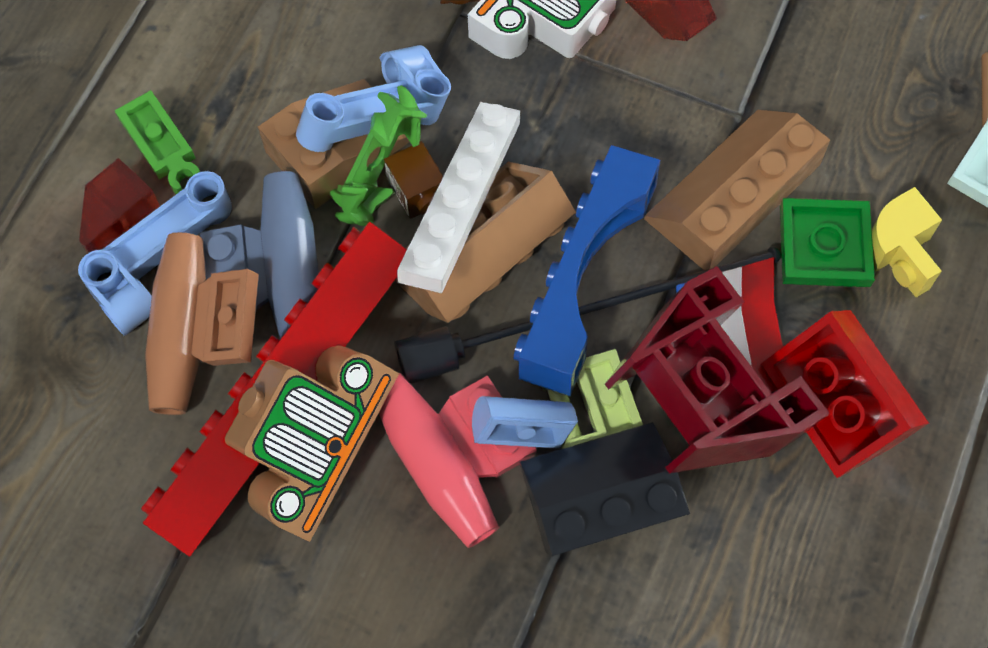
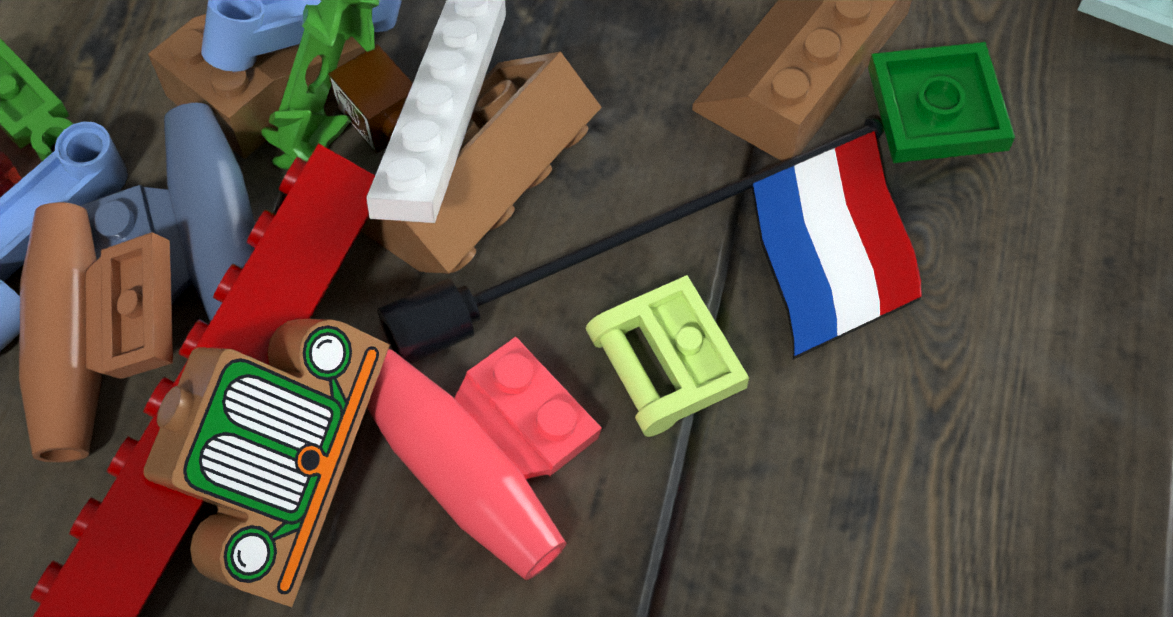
camera: 10 degrees left, 5 degrees down
(522, 422) = (575, 388): light blue brick -> none
(558, 341) = (607, 268): blue arch -> none
(603, 489) = (706, 464): black slope -> none
(711, 385) = (834, 295): dark red wedge -> none
(855, 385) = (1007, 287): red slope -> none
(898, 240) = (1037, 85): light yellow brick -> none

